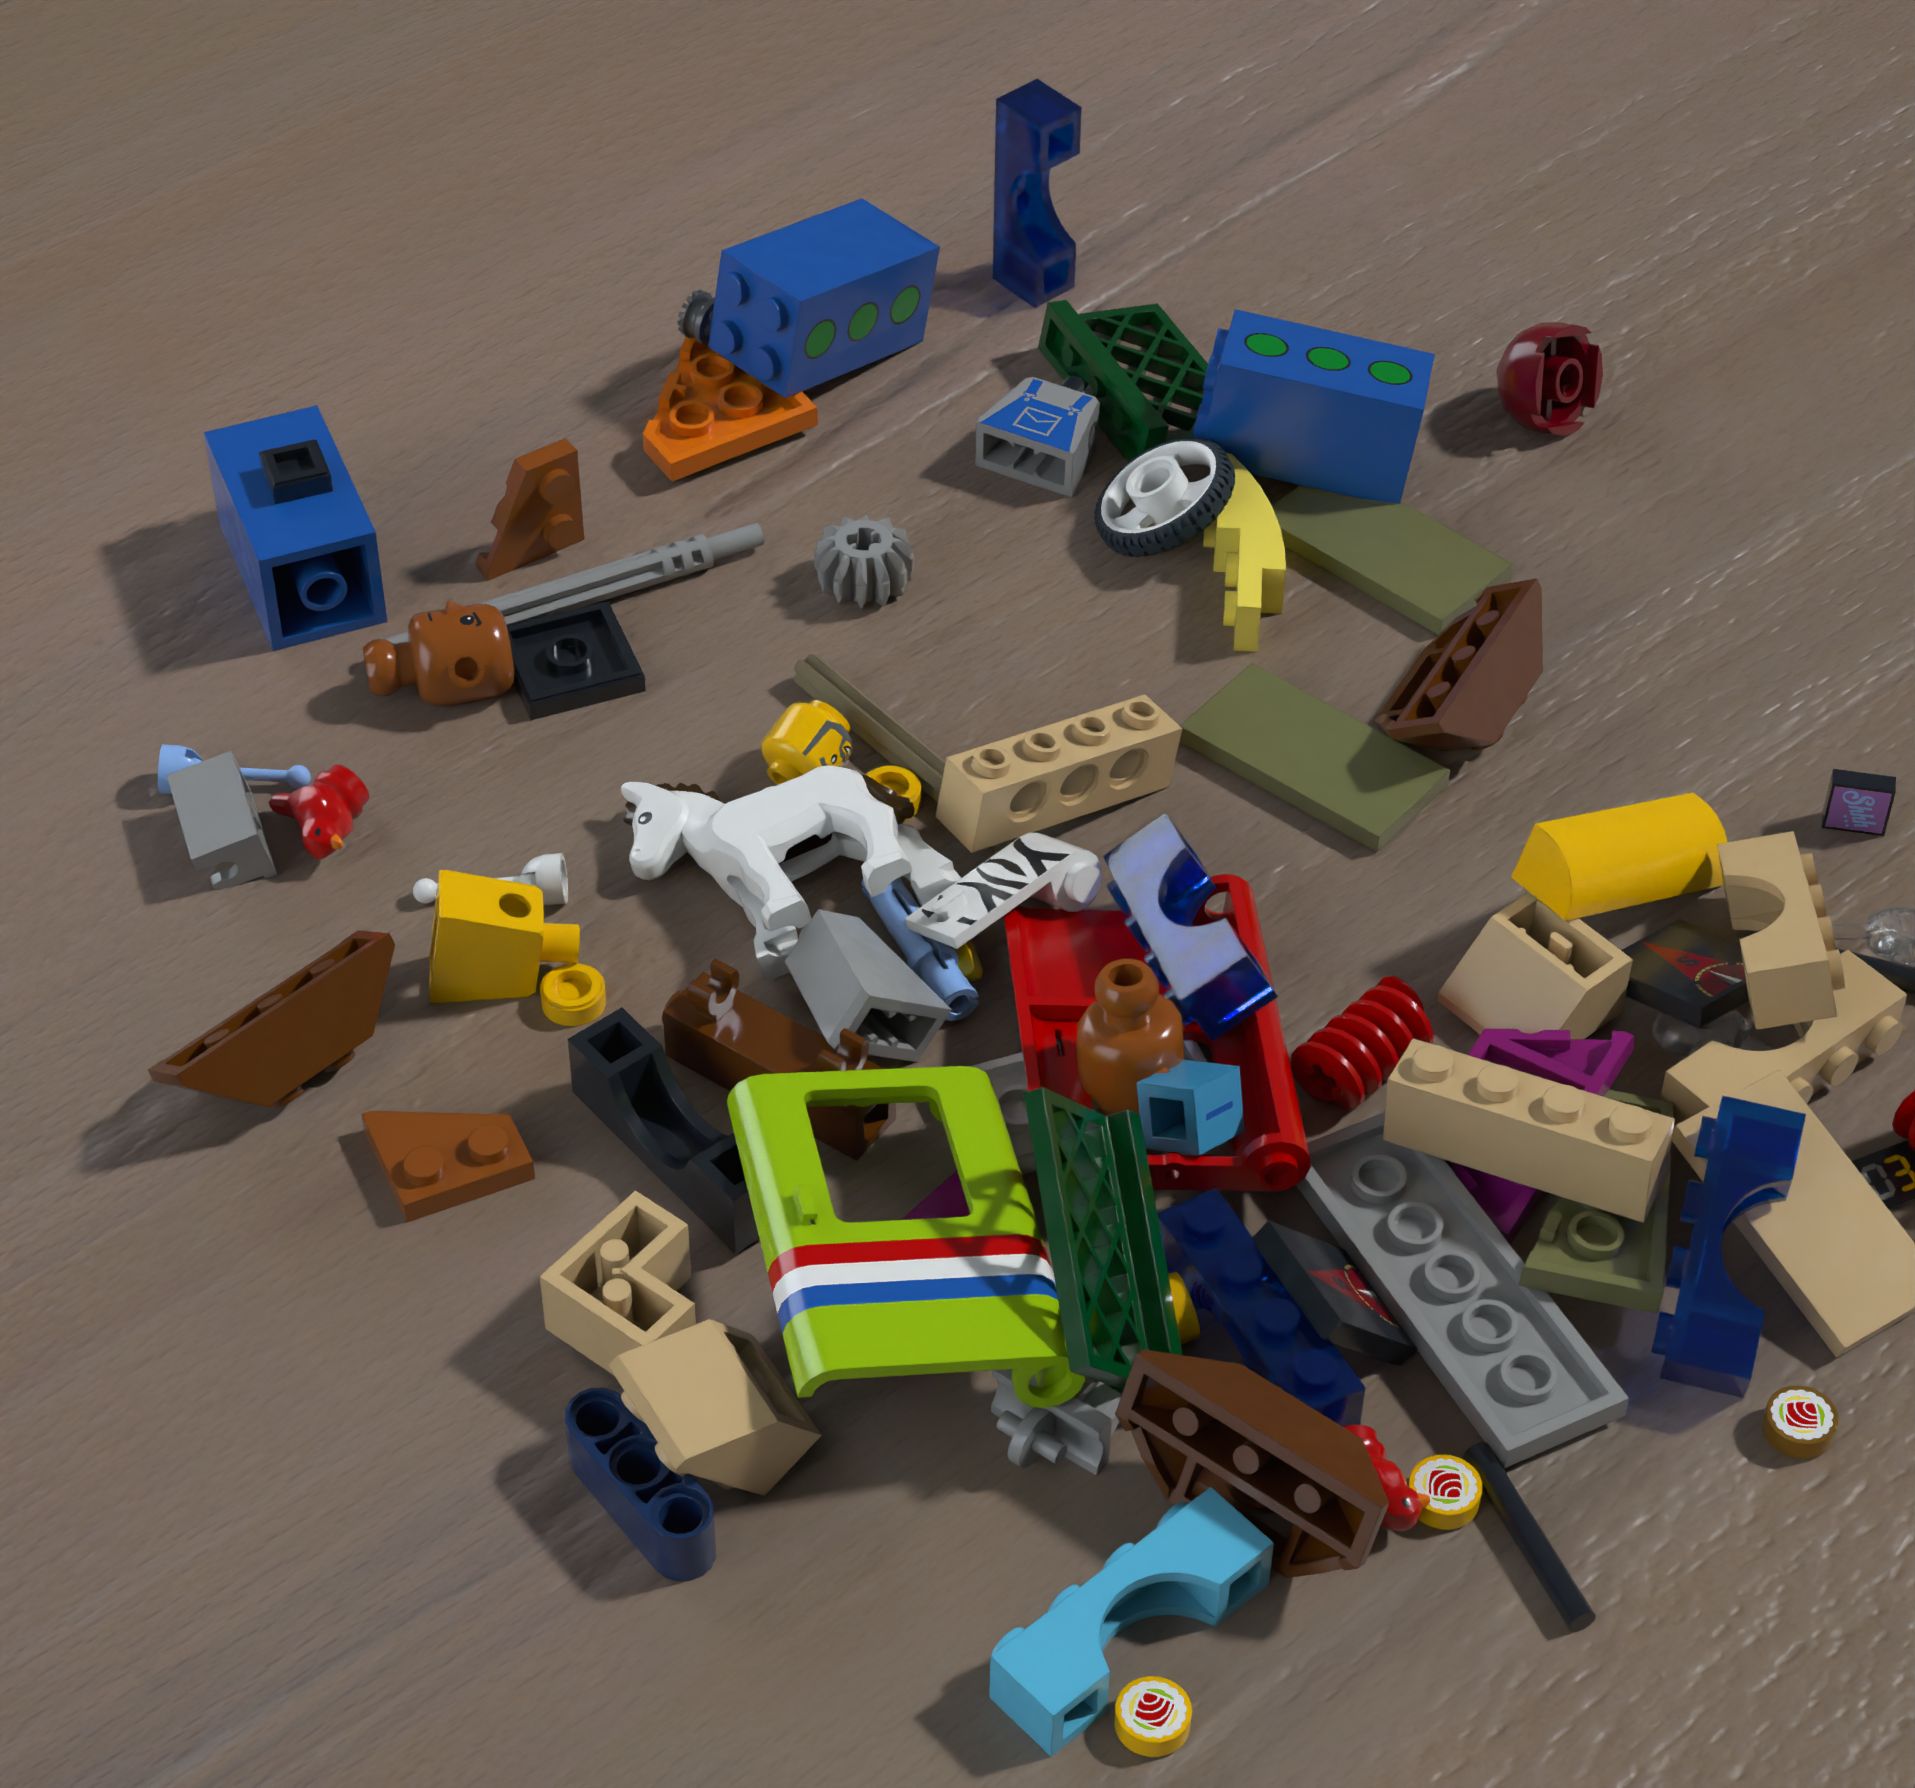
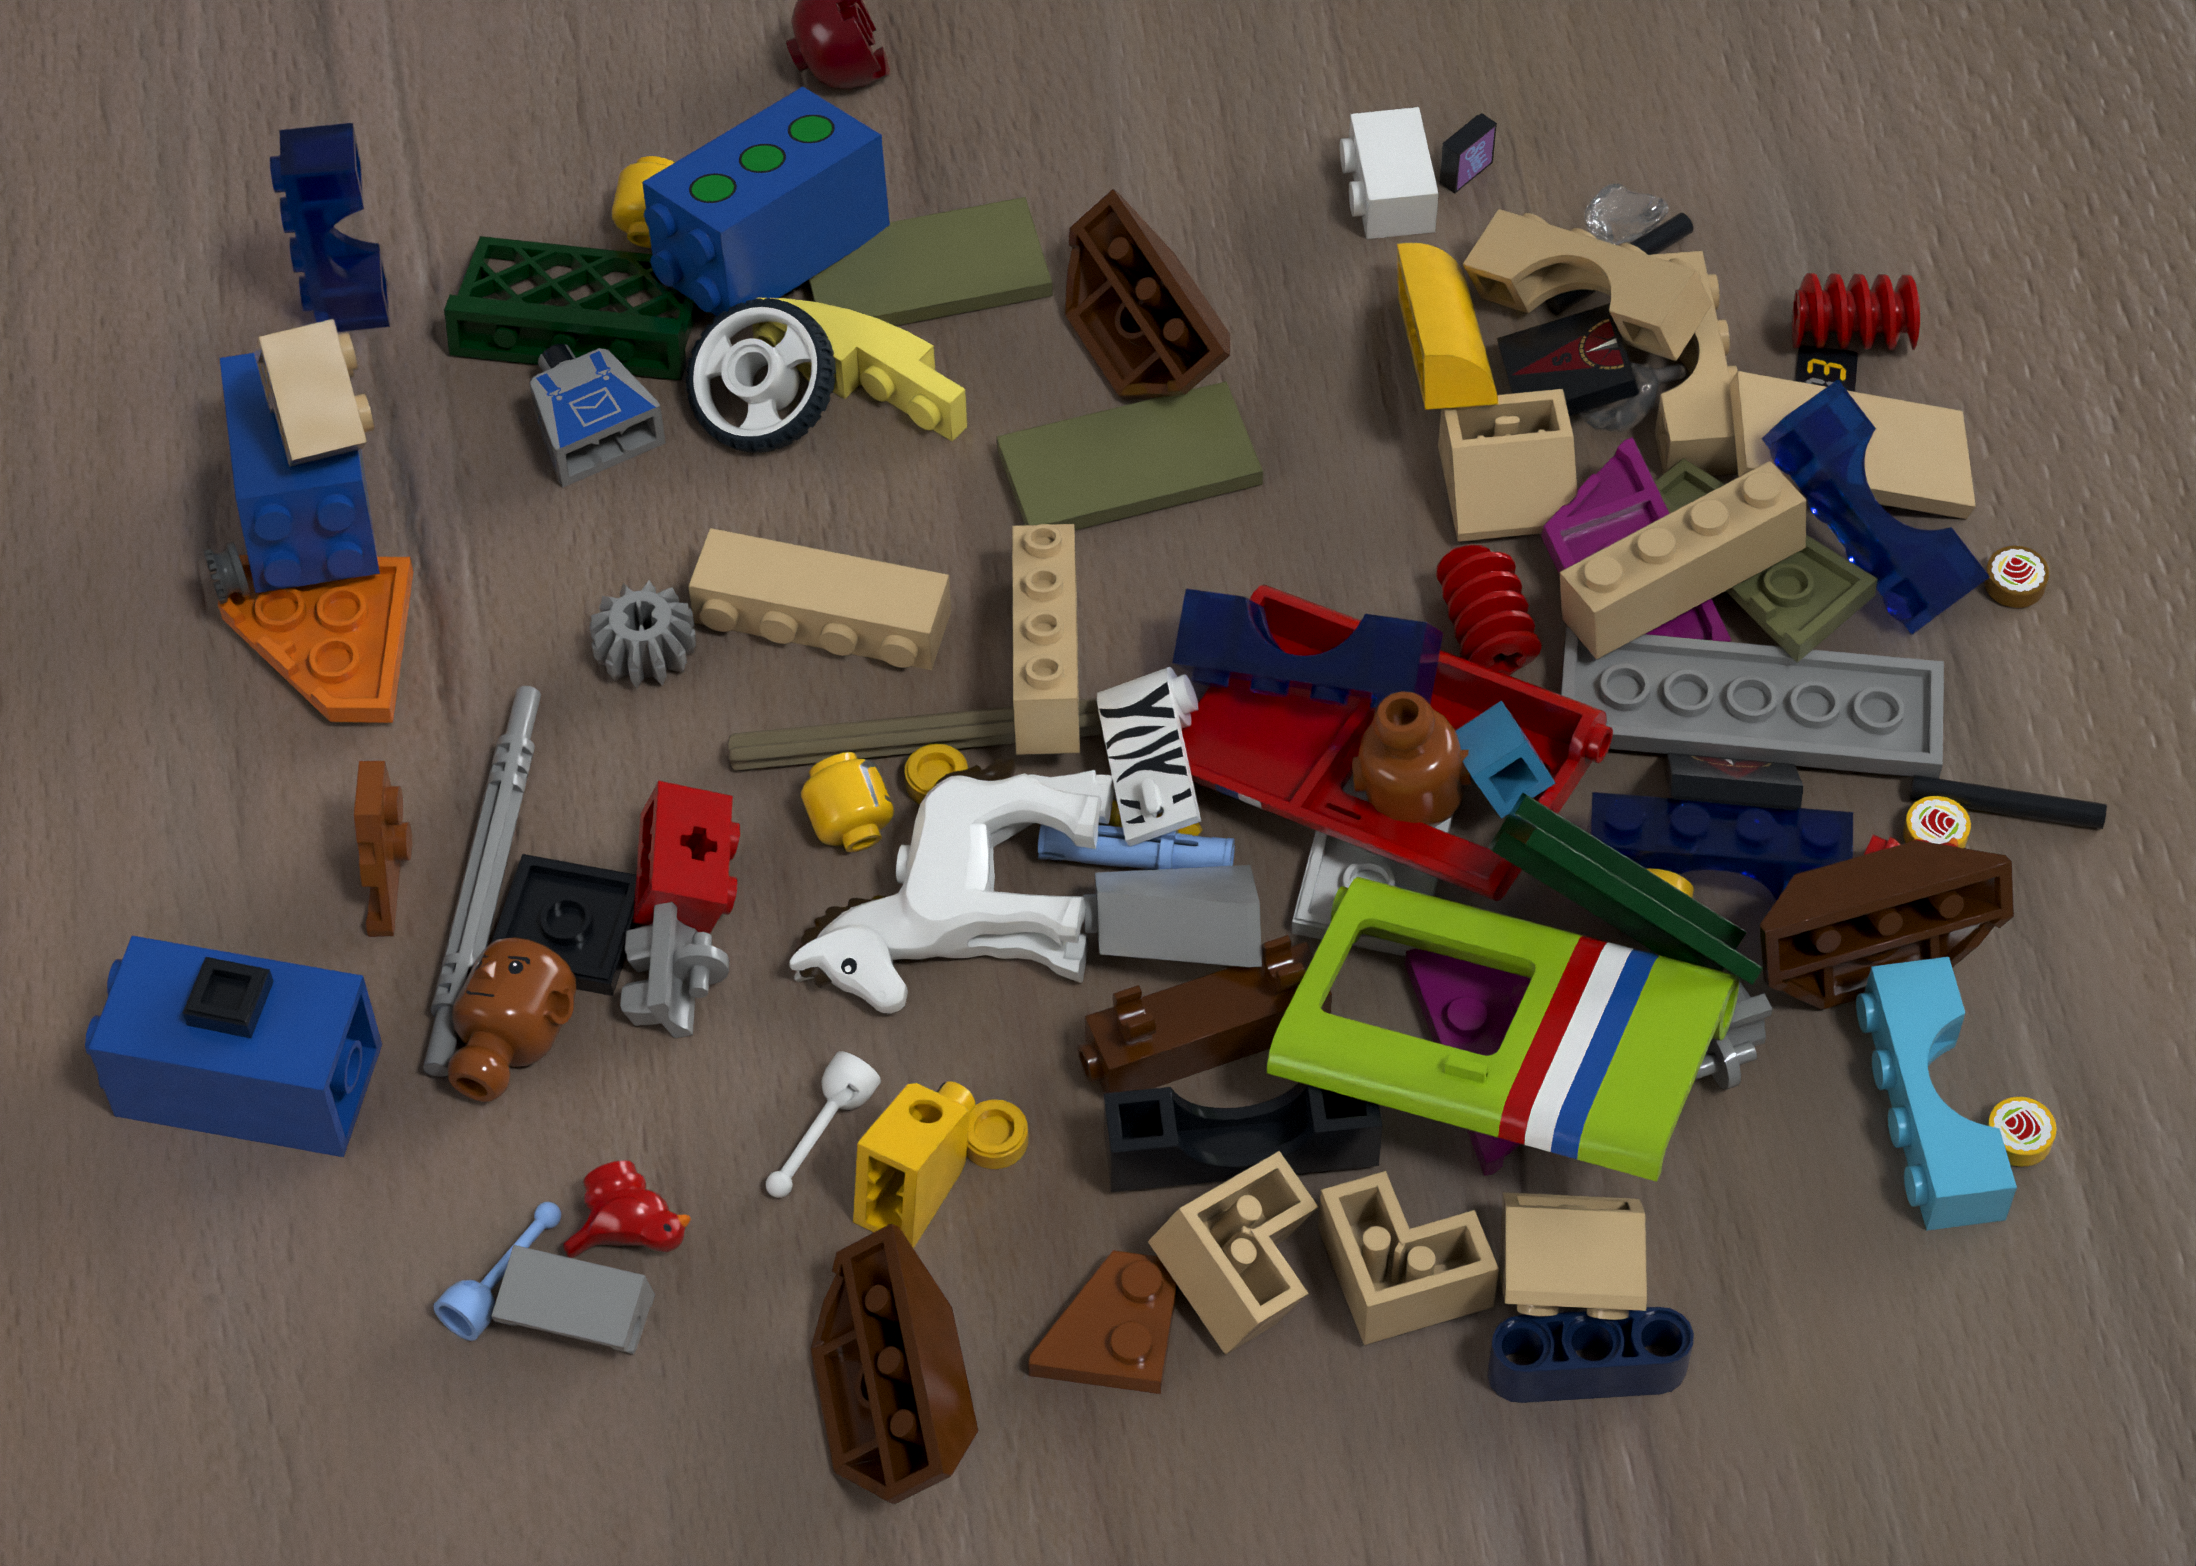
camera: 55 degrees left, 10 degrees up
(550, 1162) = (1227, 1252): none -> tan brick
(564, 728) = (679, 968): none -> light grey hips
(668, 680) = (686, 855): none -> red brick
(833, 219) = (311, 391): none -> tan brick
(987, 638) = (820, 599): none -> tan brick
(1780, 764) = (1391, 173): none -> white brick

